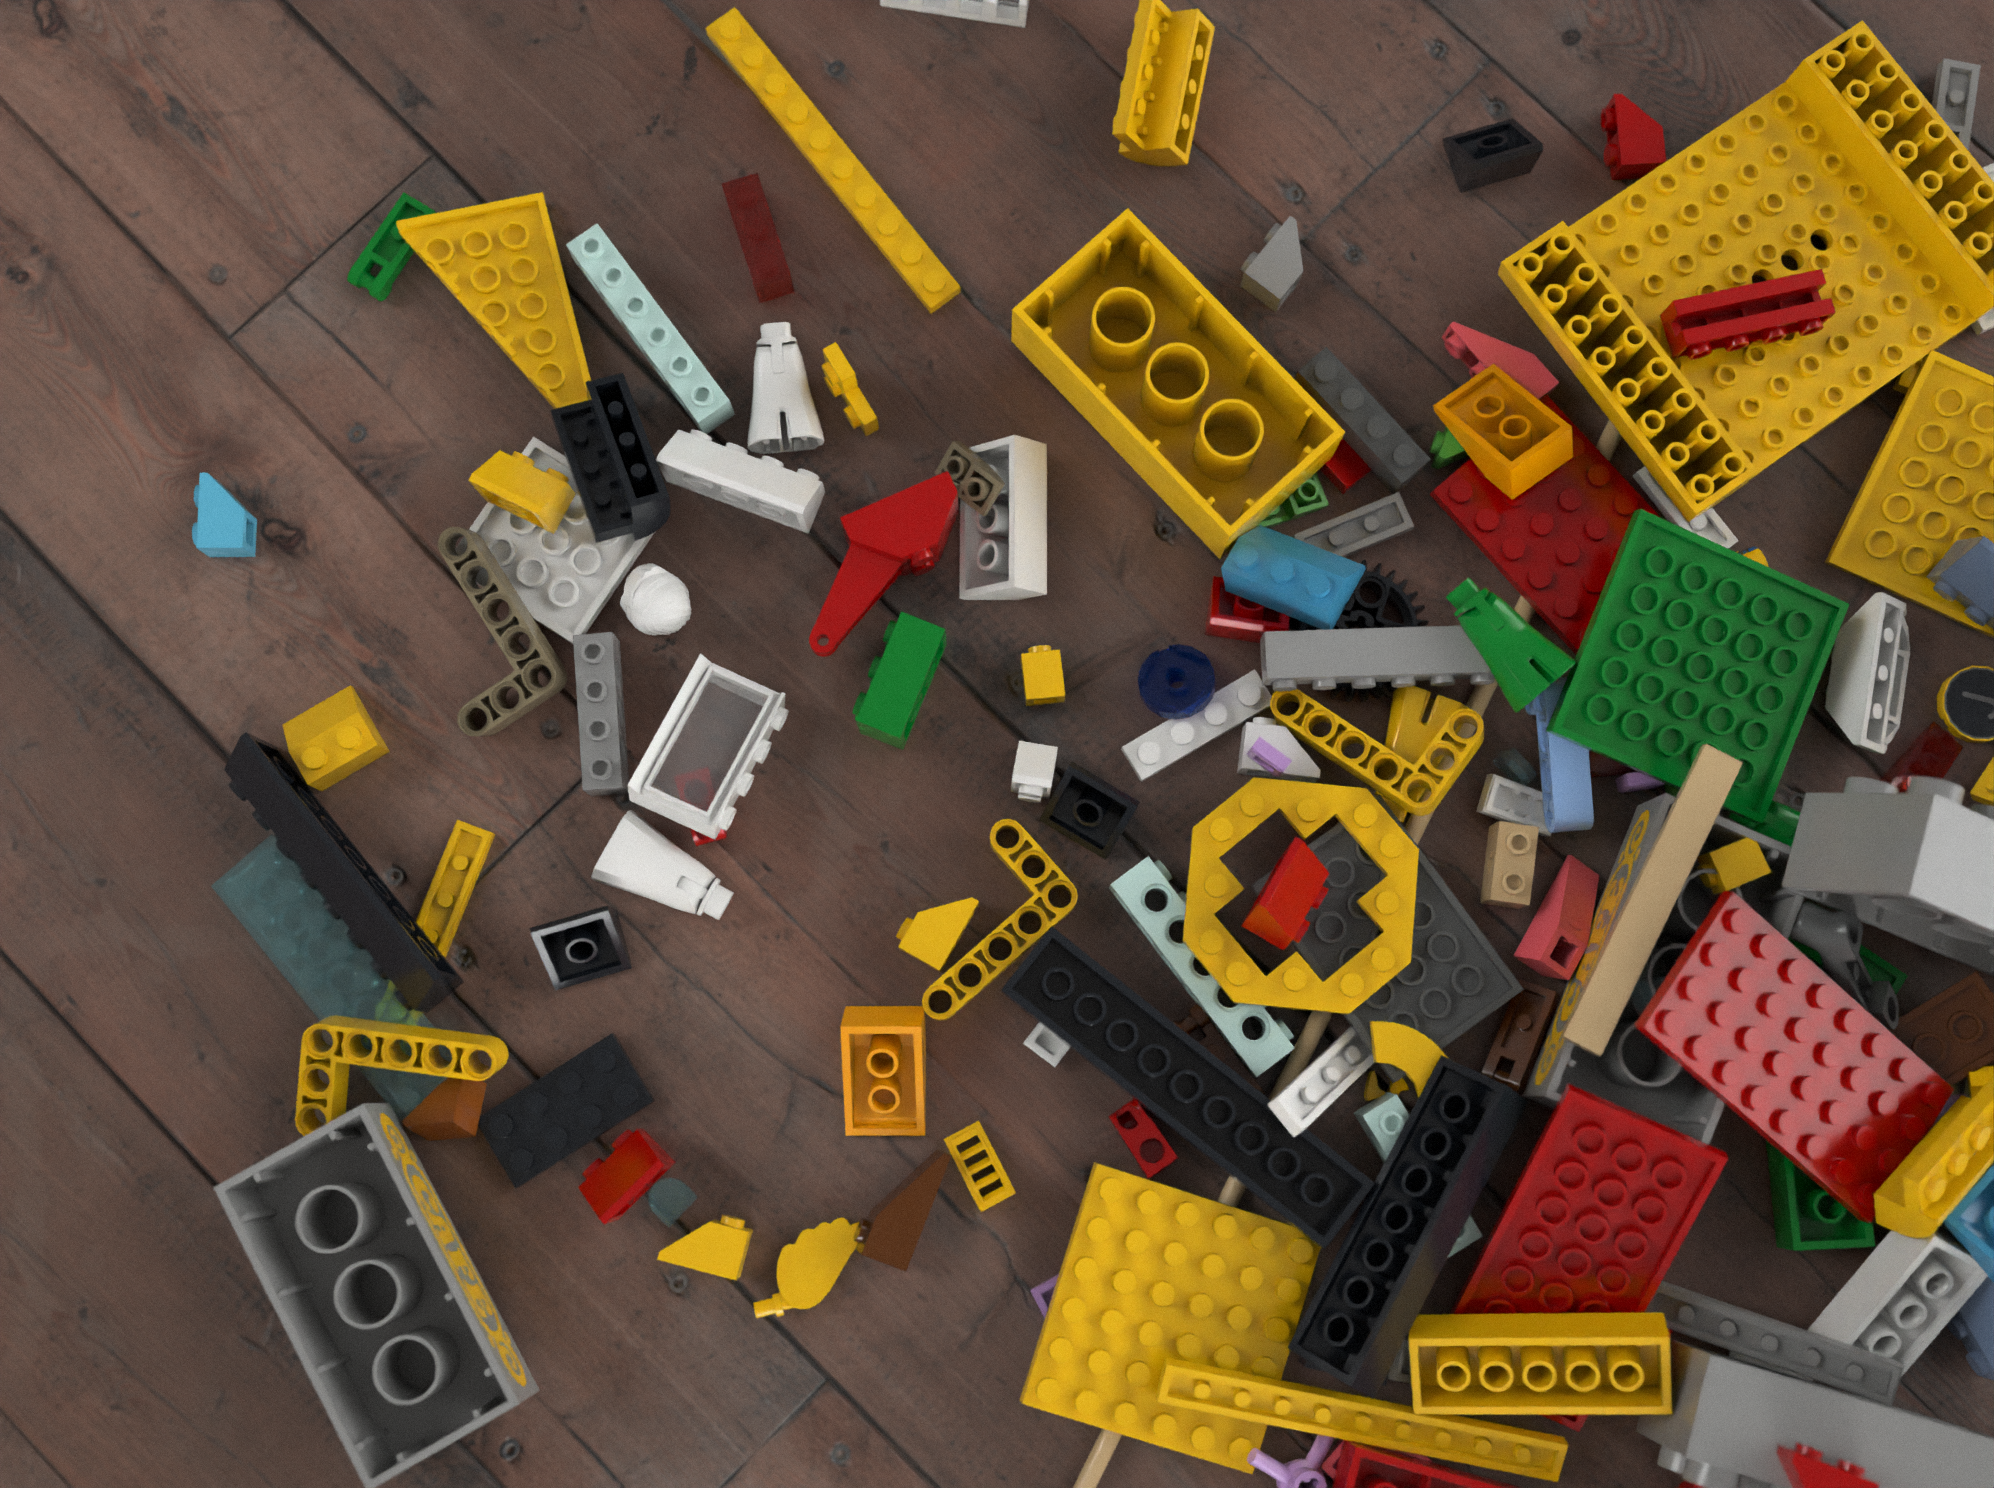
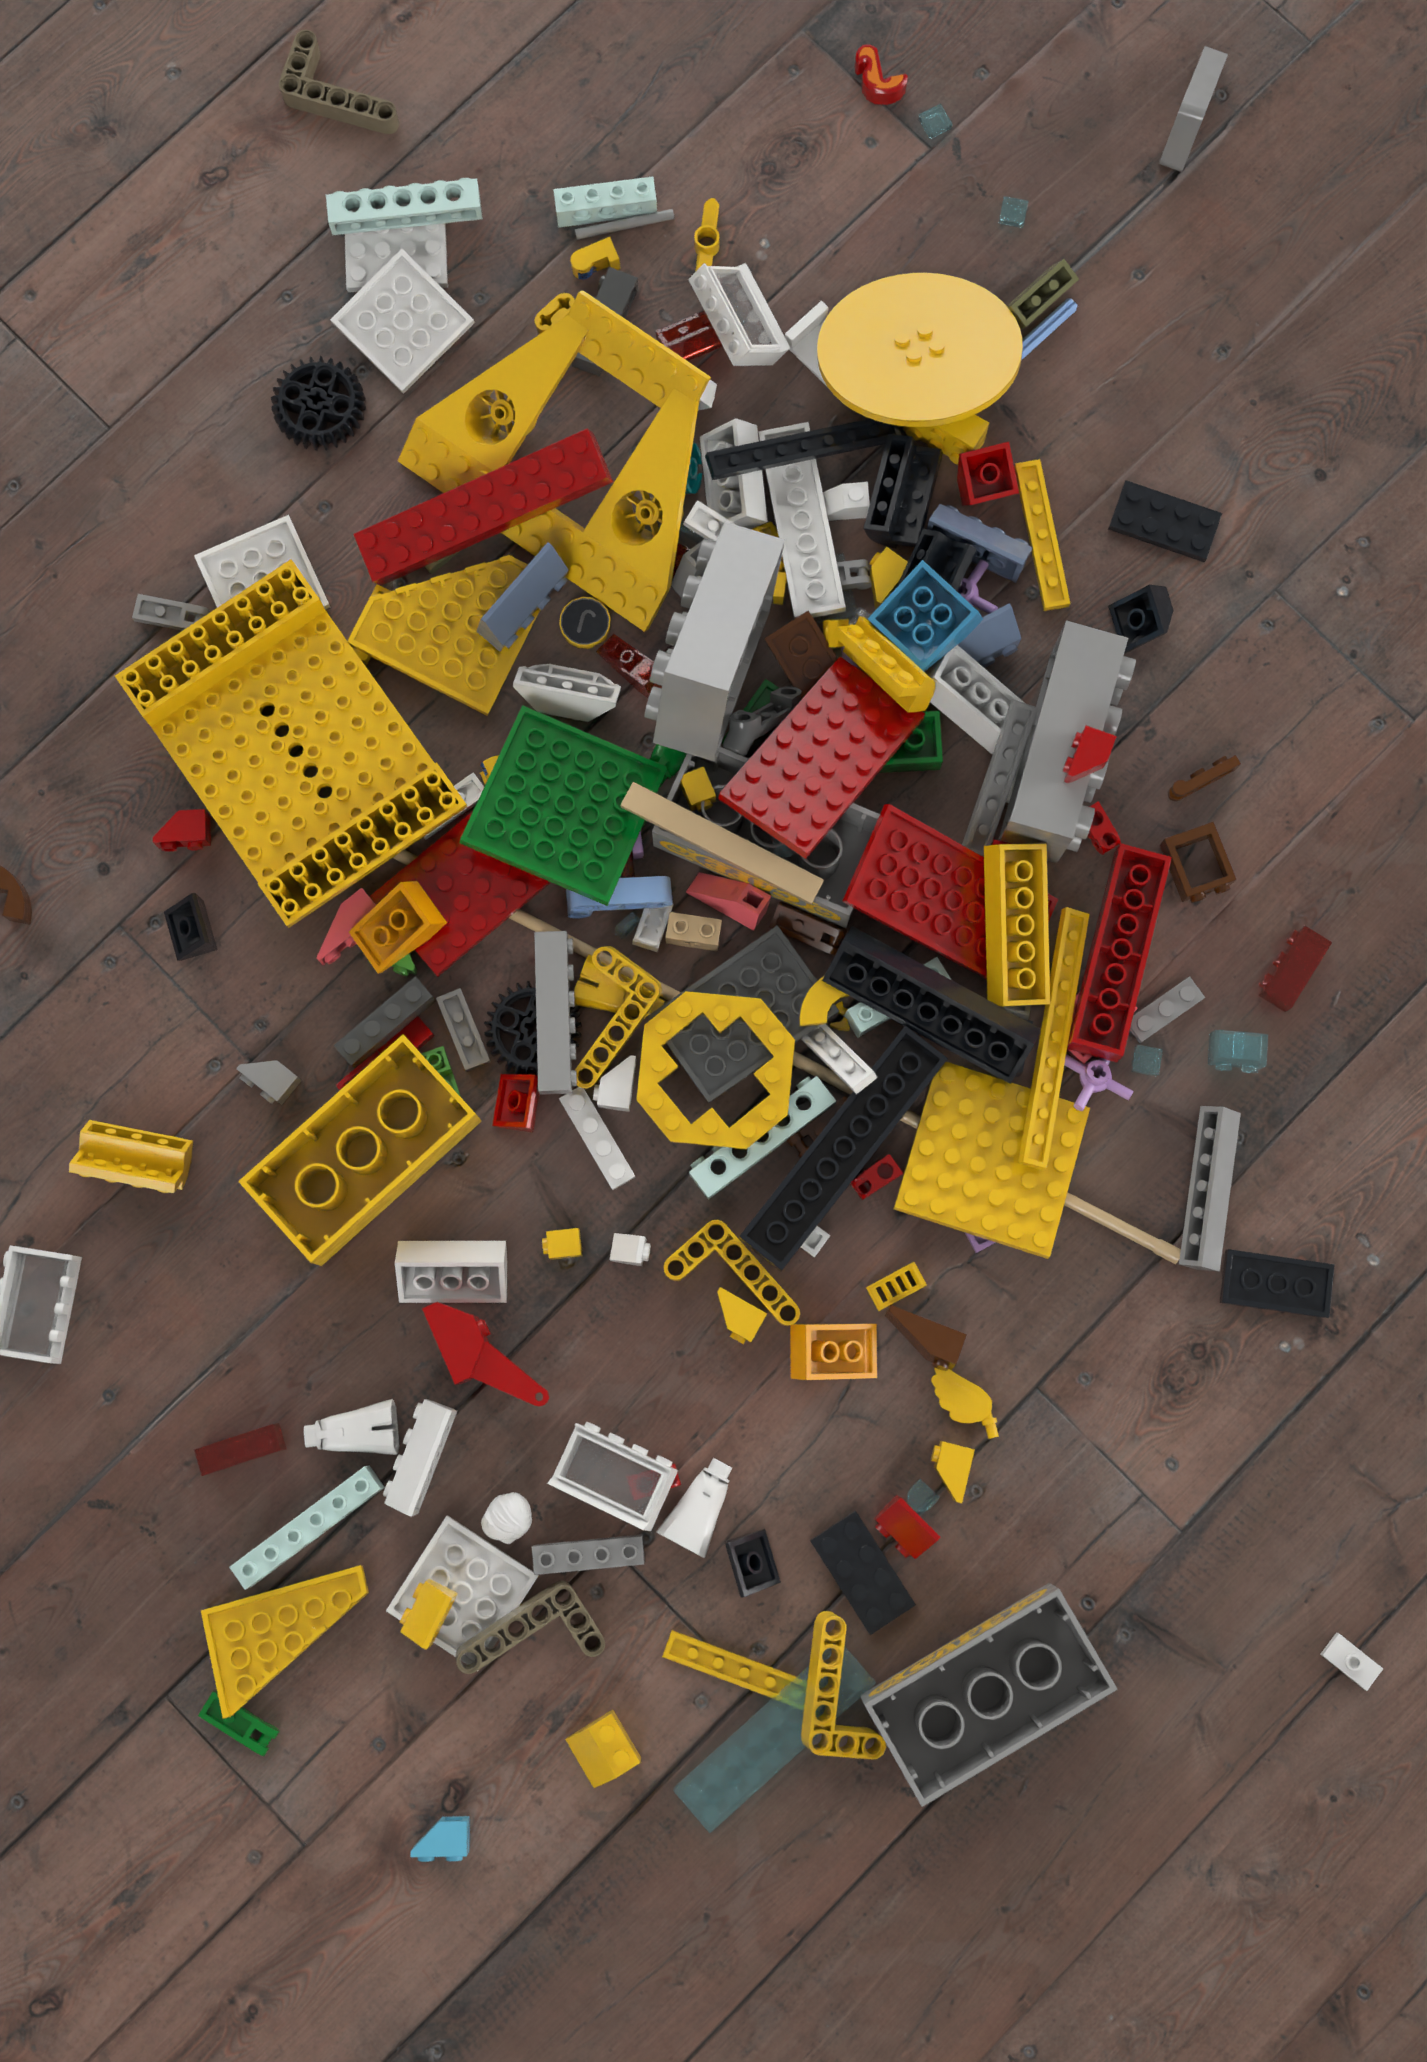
camera: 90 degrees left, 0 degrees up
(341, 874) = (701, 1737): black slope -> none
(449, 1111) = (865, 1653): dark orange slope -> none
(612, 461) = (408, 1550): black brick -> none
(833, 160) = (178, 1398): yellow plate -> none
(842, 381) = (349, 1386): yellow plate -> none
(900, 679) = (566, 1342): green brick -> none
(972, 476) = (421, 1293): dark tan slope -> none
(1089, 810) = (657, 1212): black slope -> none
(1172, 665) = (555, 1156): clear blue plate -> none
(1268, 757) = (623, 1089): lavender tile -> none
(1288, 896) = (718, 1078): red slope -> none
(1291, 576) = (496, 1072): dark azure slope -> none
(1513, 650) = (554, 925): green piece -> none
(1746, 315) = (324, 763): red brick -> none

